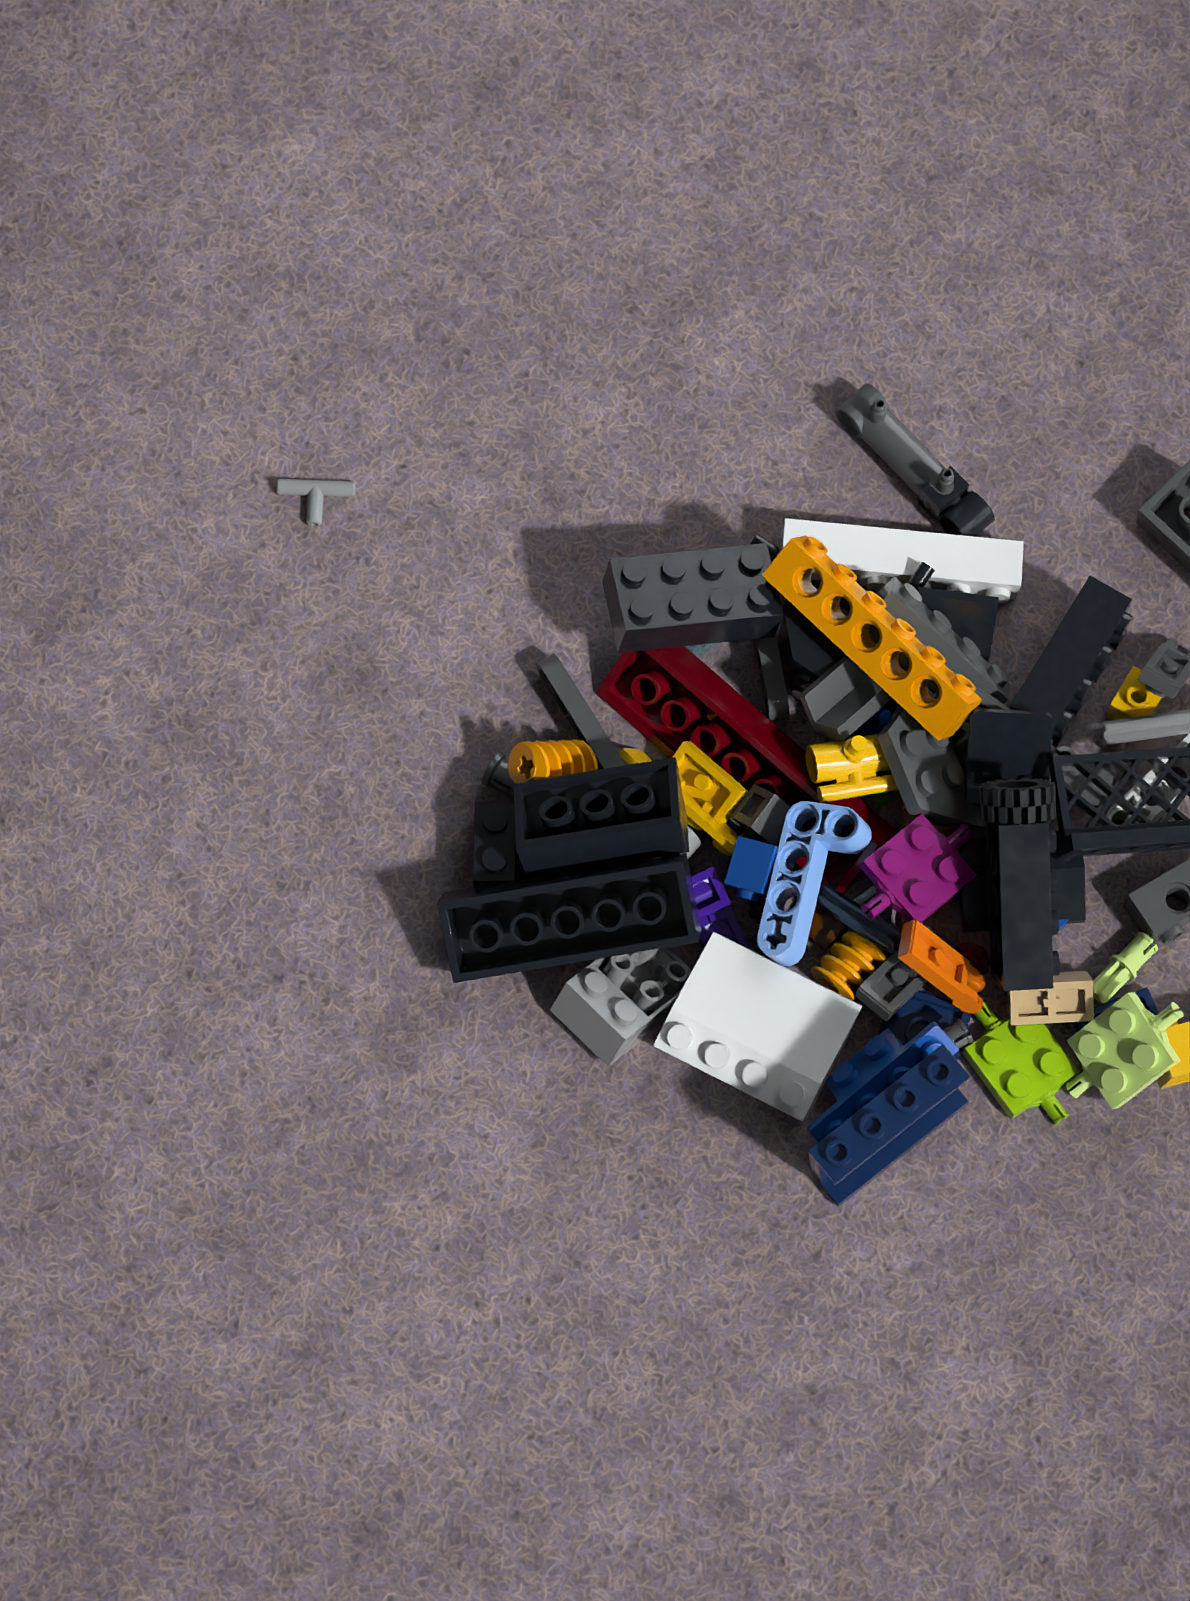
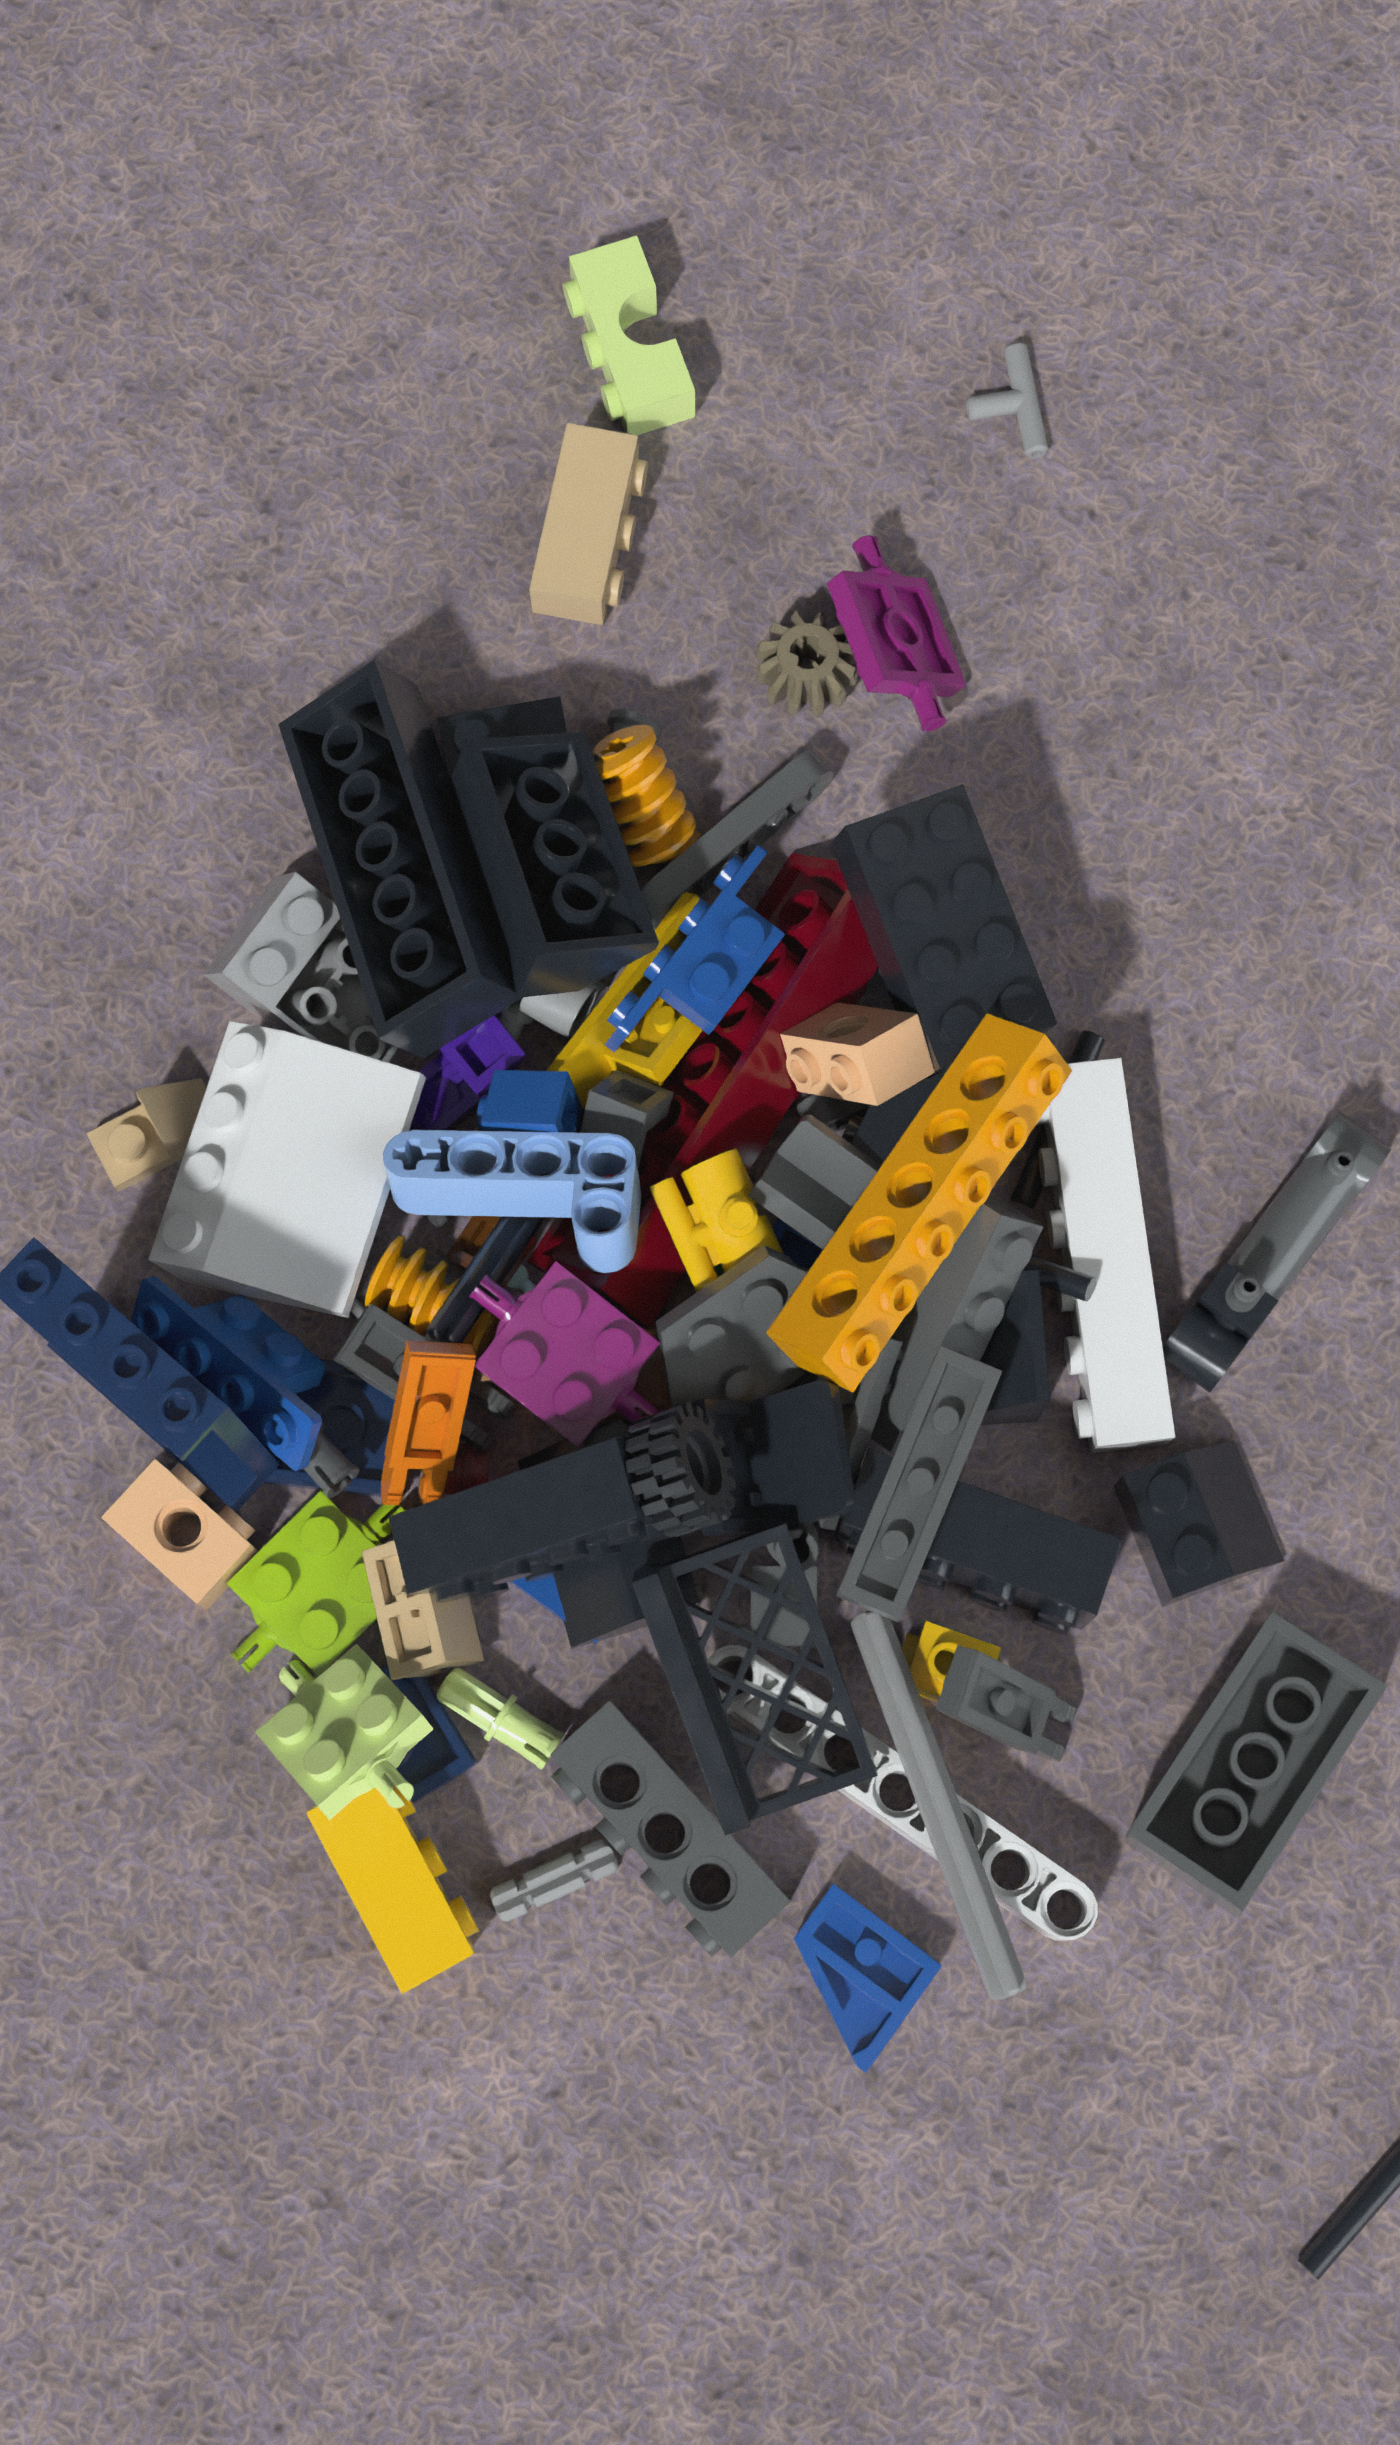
camera: 80 degrees right, 5 degrees up
(251, 721) = (645, 383): none -> yellowish green arch
(346, 770) = (587, 524): none -> tan brick
(471, 594) = (896, 633): none -> magenta plate
(480, 666) = (829, 672): none -> dark tan gear
(669, 733) = (713, 963): none -> blue bracket
(708, 1116) = (149, 1134): none -> tan slope
(756, 665) = (857, 1053): none -> light nougat brick
(964, 1159) = (145, 1520): none -> light nougat brick
(1040, 676) = (919, 1484): none -> dark grey plate
(1072, 546) = (1197, 1521): none -> black slope

